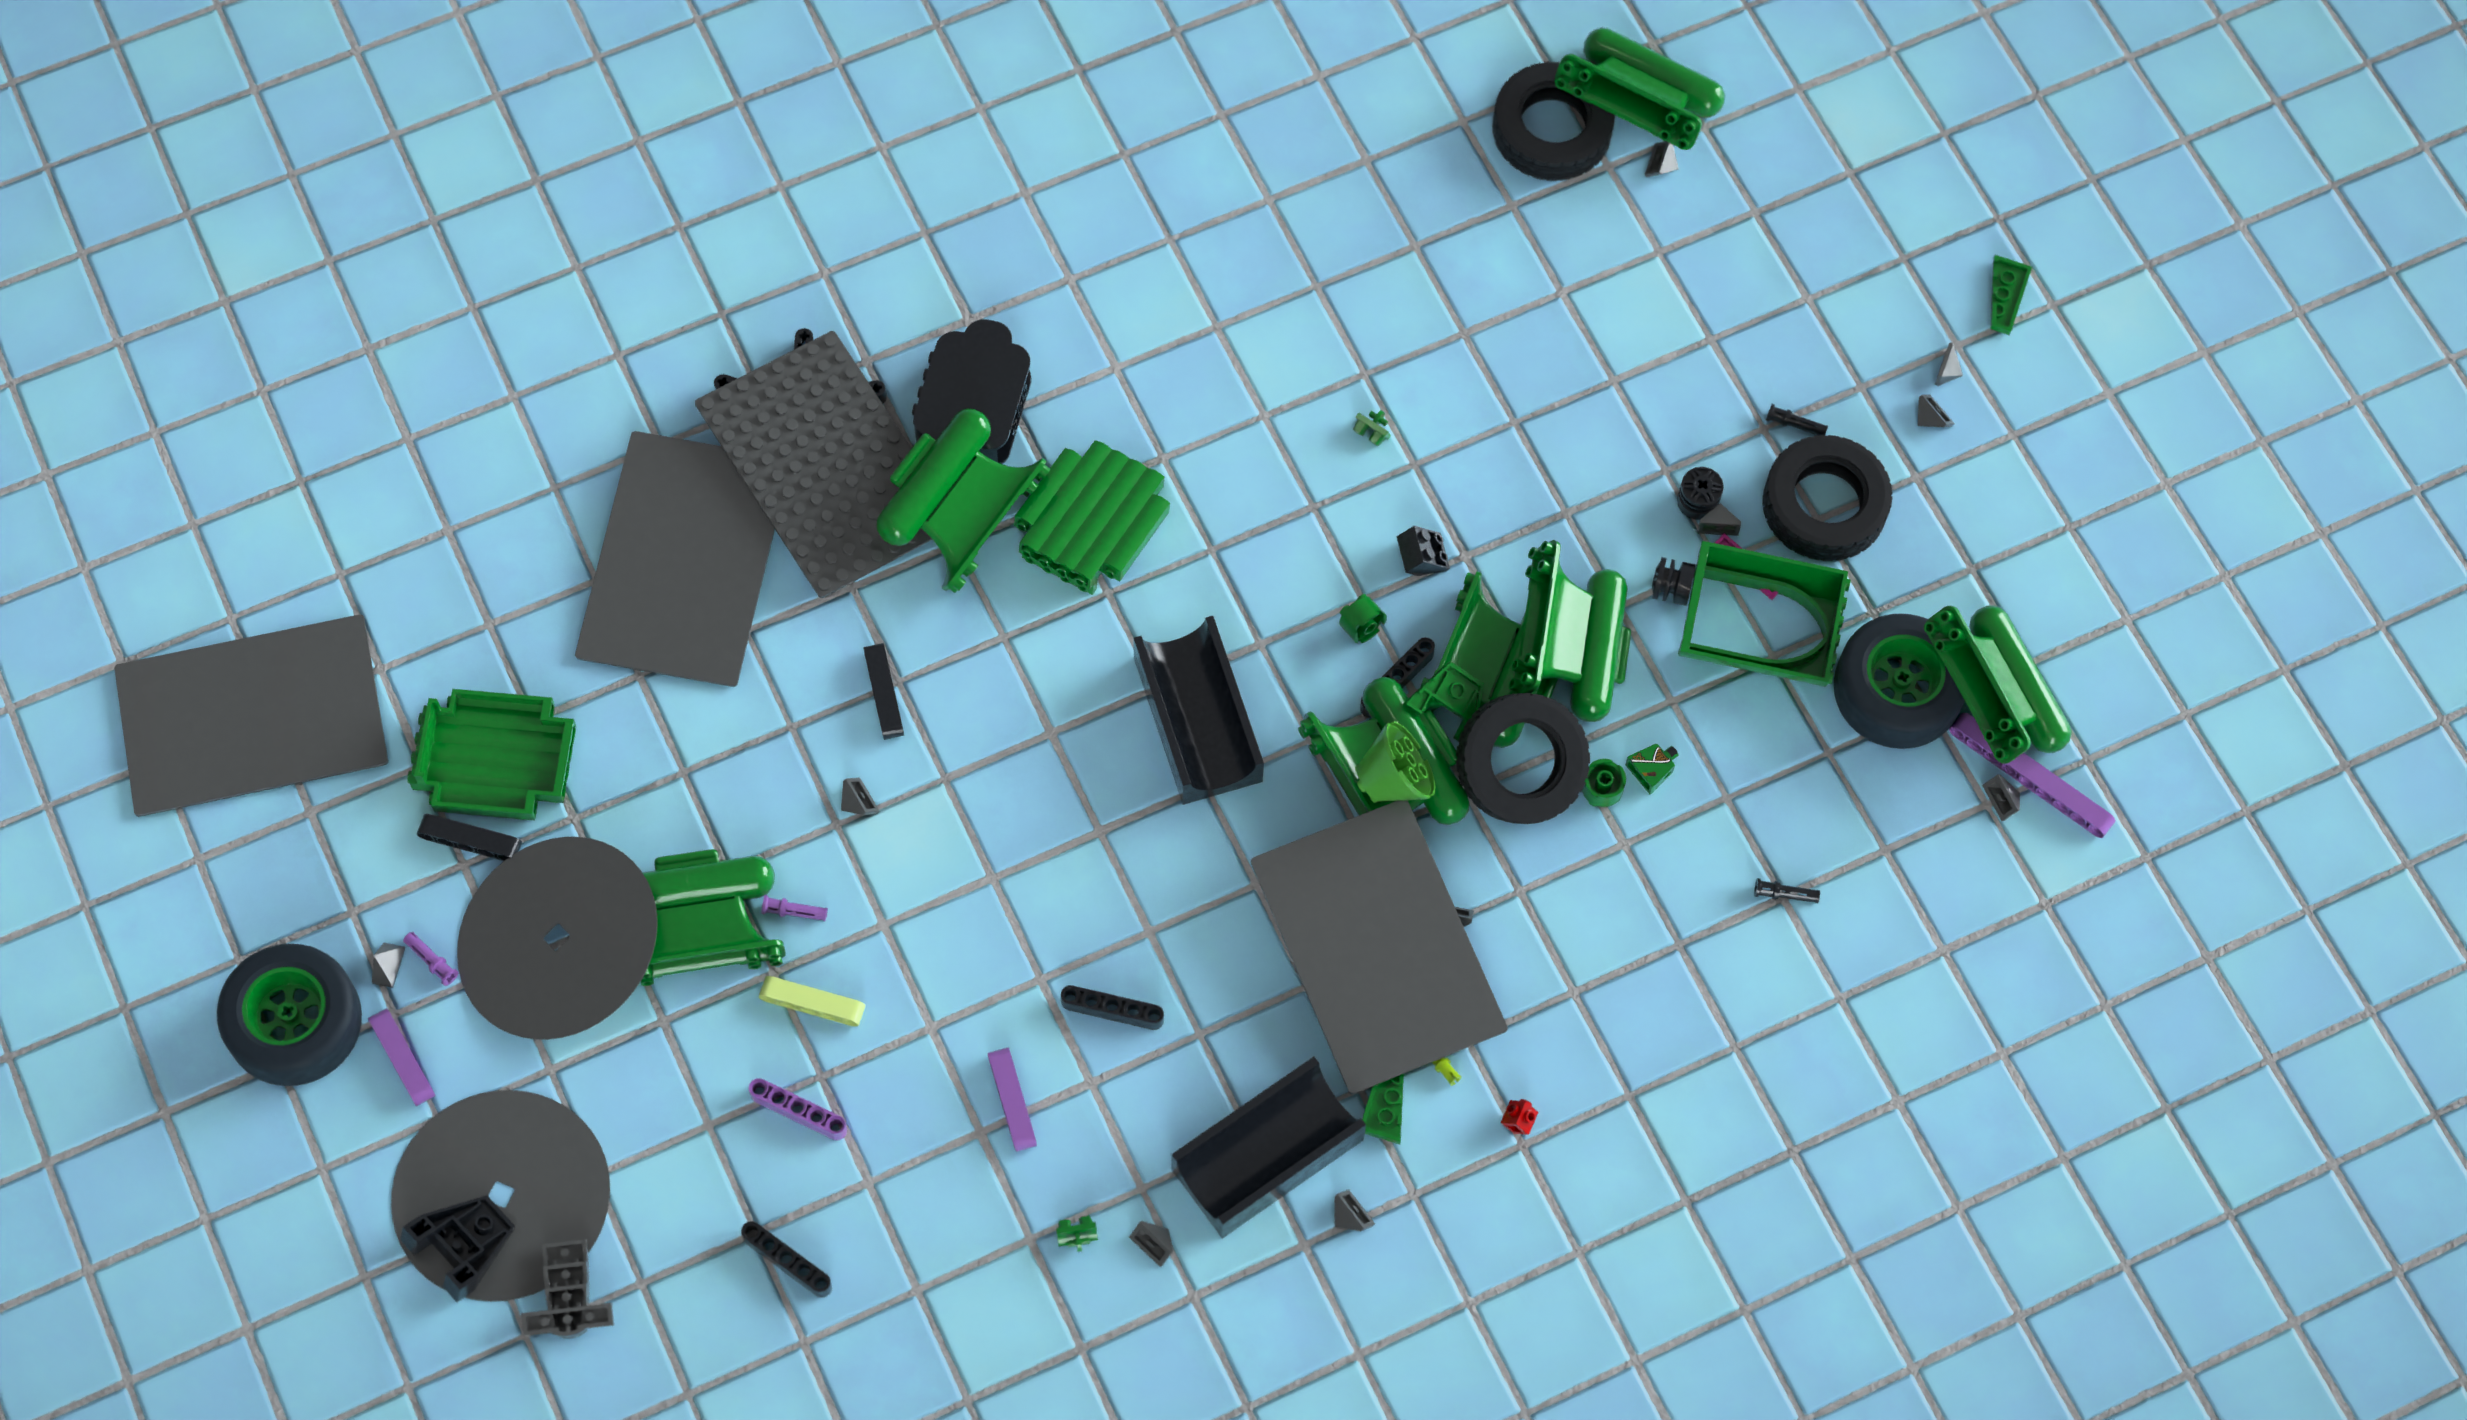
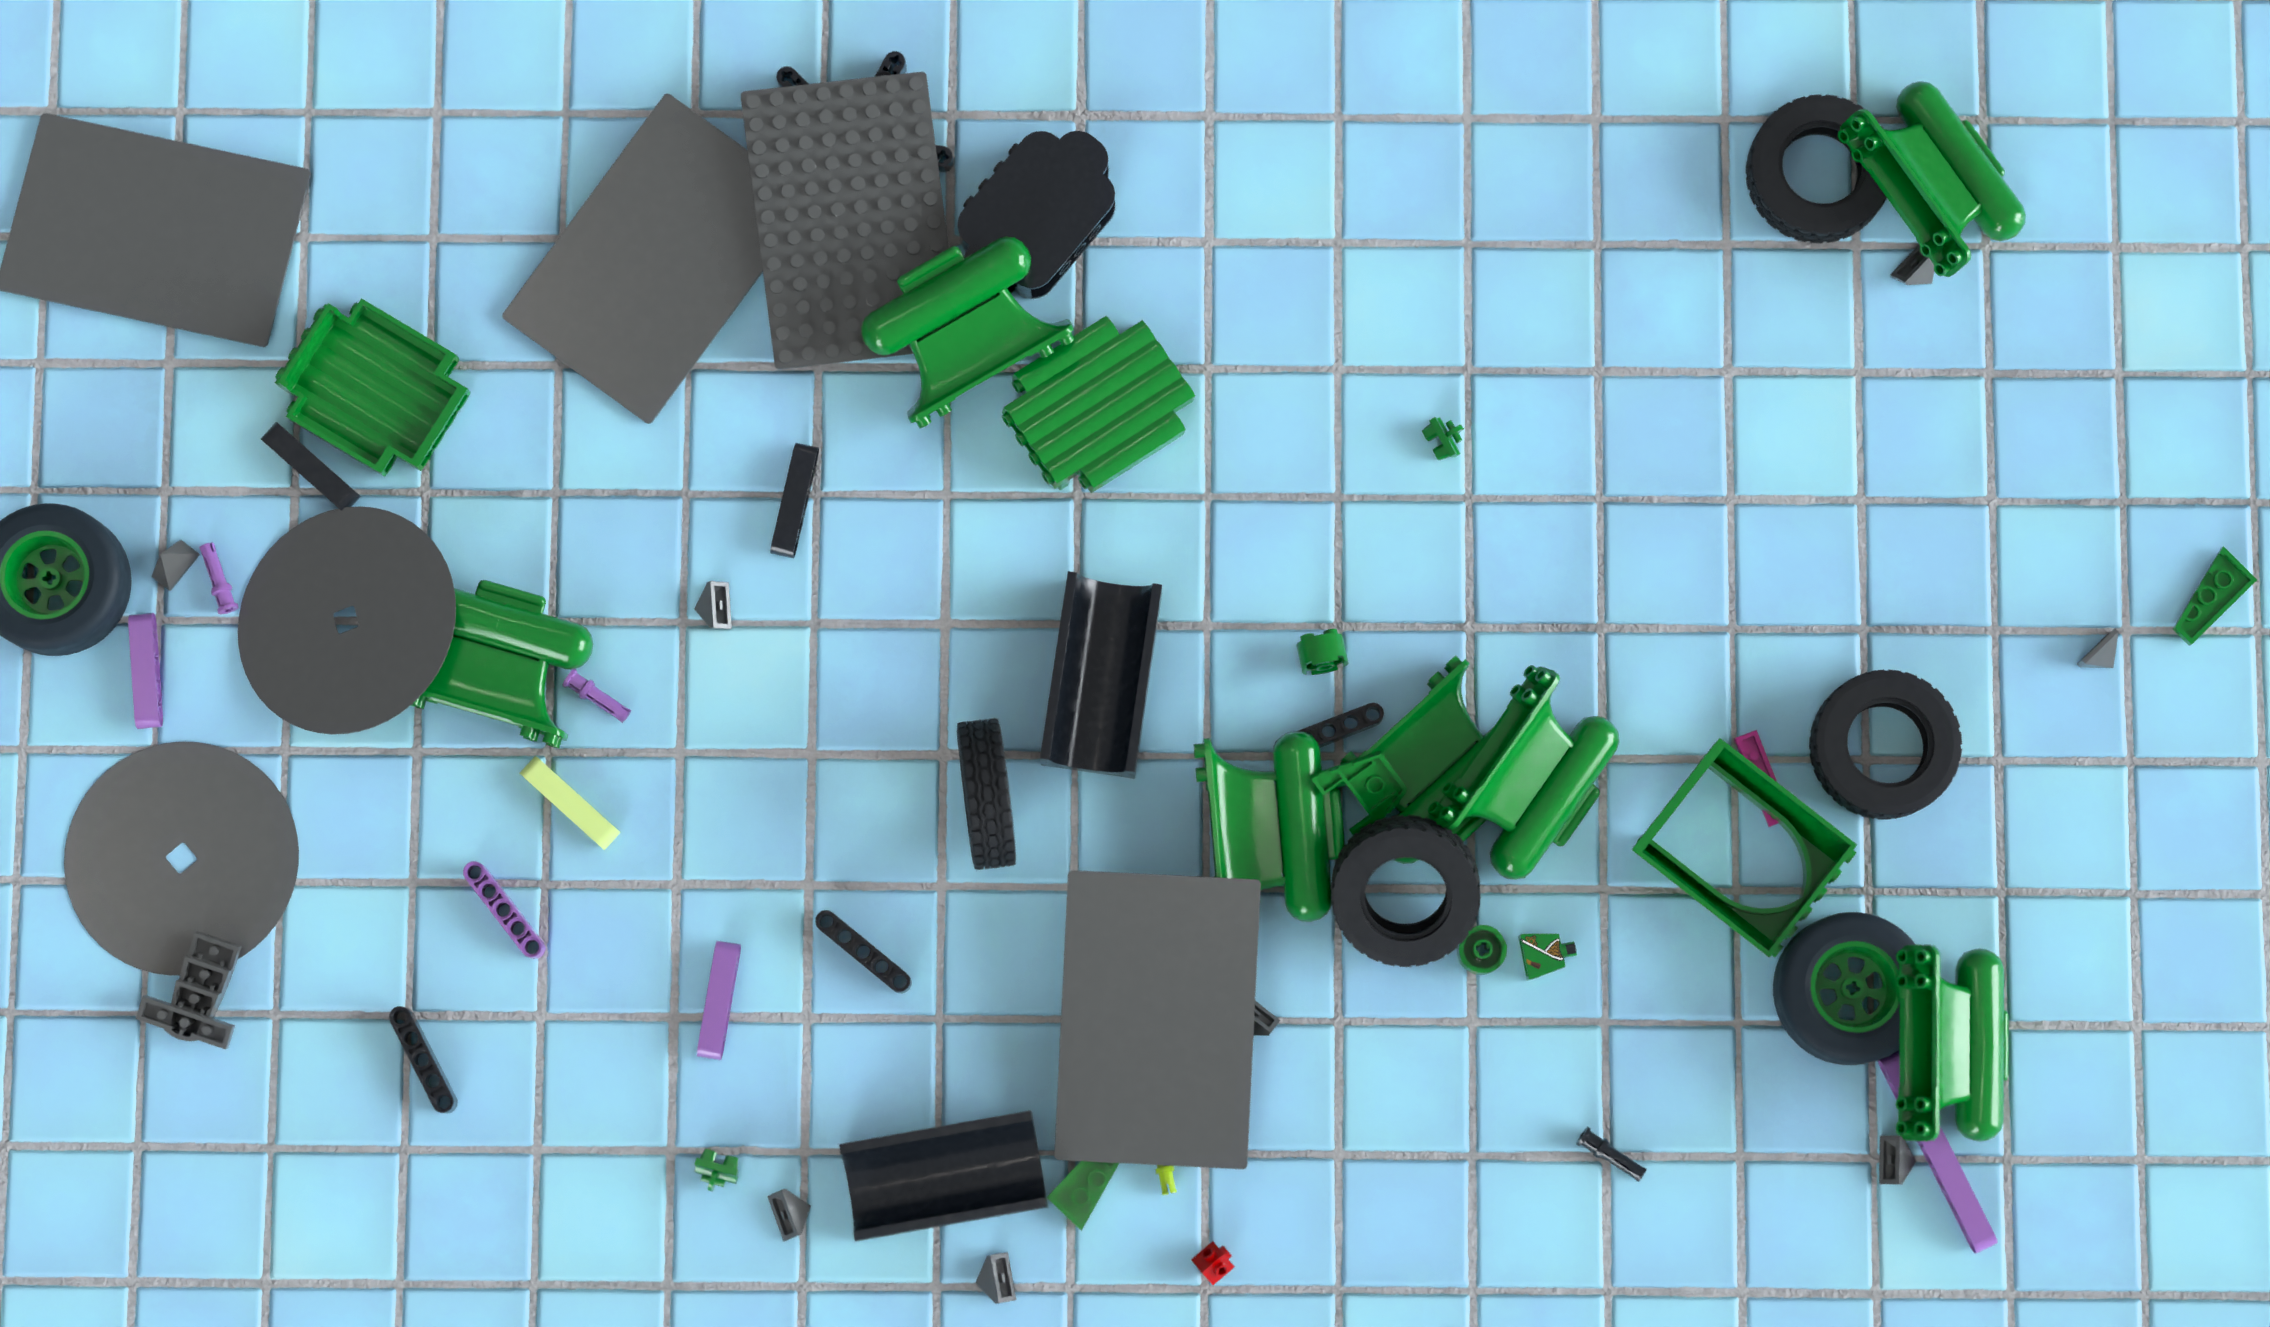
camera: 30 degrees right, 15 degrees up
(466, 1236) = (130, 888): black wedge -> none
(1155, 827) = (986, 794): none -> black tyre
(1395, 768) = (1264, 847): bright green cone -> none
(1422, 551) = (1425, 604): black slope -> none
(1673, 581) = (1670, 763): black wheel -> none
(1699, 492) = (1746, 688): black wheel -> none
(1719, 522) = (1757, 716): dark grey slope -> none
(1787, 418) = (1922, 660): black pin -> none
(1931, 413) = (2054, 698): dark grey slope -> none

